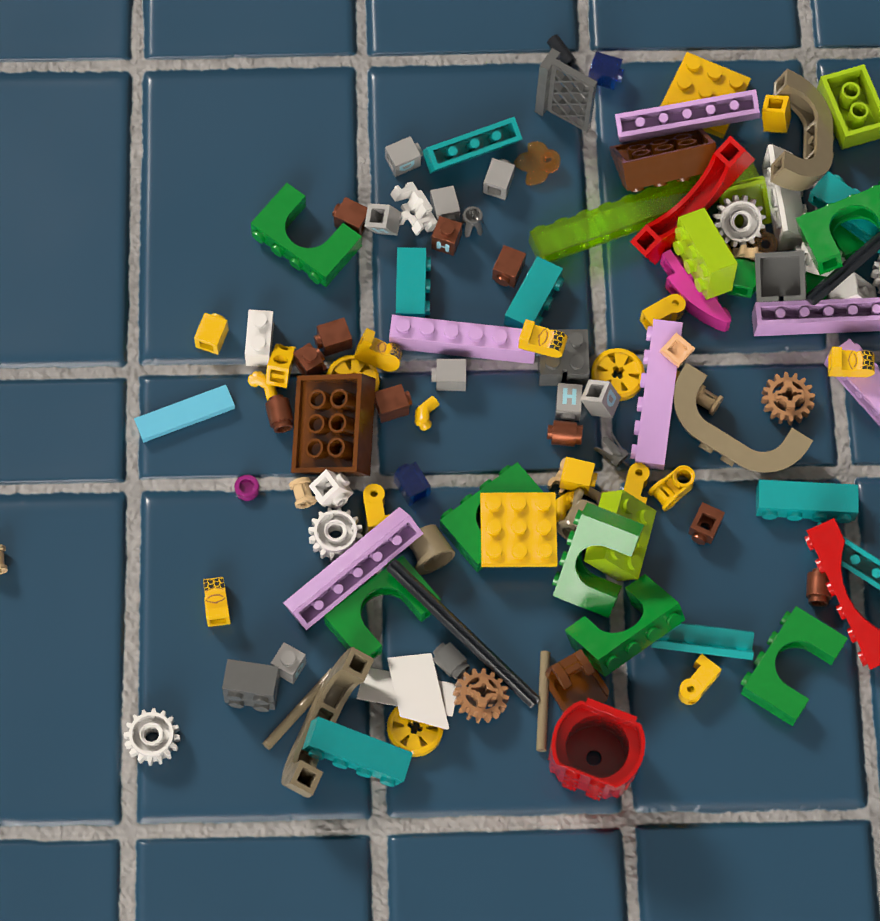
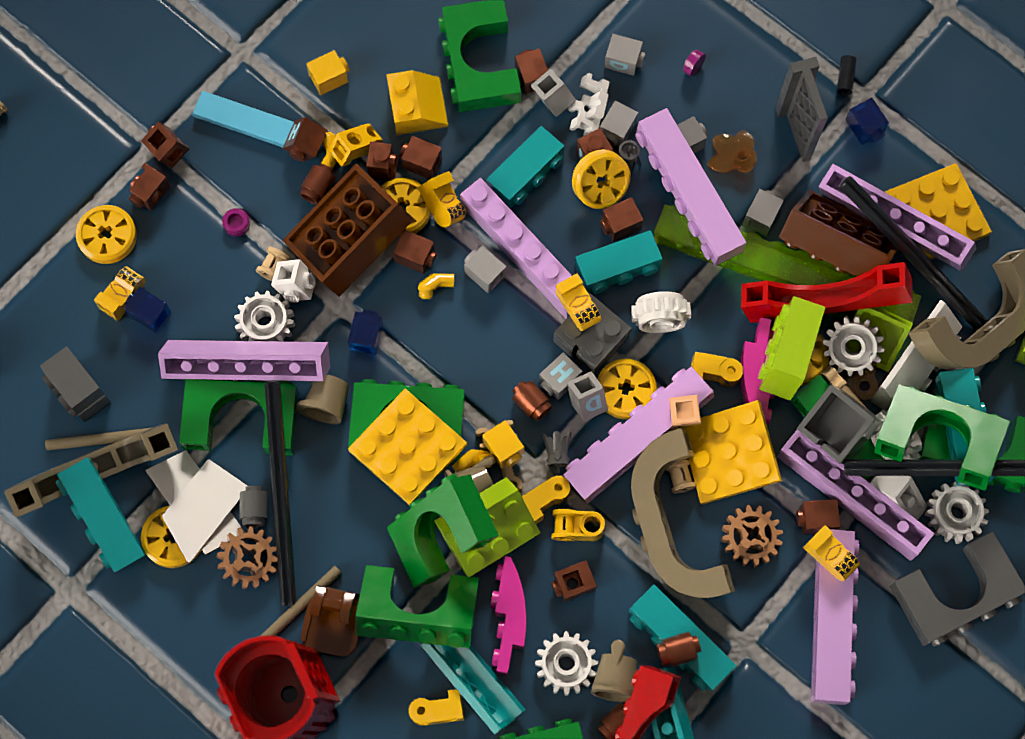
camera: 45 degrees right, 5 degrees up
(135, 473) = (165, 144): none -> copper brick
(153, 561) = (106, 218): none -> yellow wheel
(163, 514) = (148, 188): none -> copper brick
(242, 390) = (304, 139): none -> copper brick
(246, 596) = (147, 309): none -> clear blue brick
(259, 337) = (361, 106): white brick -> none
(289, 662) = (124, 393): light grey brick -> none
(292, 304) = (416, 102): none -> yellow slope
(373, 504) = (317, 324): yellow leg -> none
(455, 123) = (694, 62): none -> magenta tile
(468, 262) = (601, 164): none -> yellow wheel
(472, 145) = (688, 91): teal brick -> none
(538, 205) = (690, 187): none -> lavender brick
(595, 185) = (763, 211): none -> light grey brick
(596, 303) = (661, 312): none -> white gear
(680, 574) = (511, 606): none -> dark pink slope
(720, 130) = (912, 253): none -> black axle
(728, 355) = (732, 453): none -> yellow plate
(750, 566) = (571, 648): none -> white gear
(776, 113) = (982, 280): yellow brick -> none
(790, 558) = (615, 675): none -> dark tan hat
(815, 350) = (816, 514): none -> copper brick
(815, 504) = (678, 649): none -> copper brick

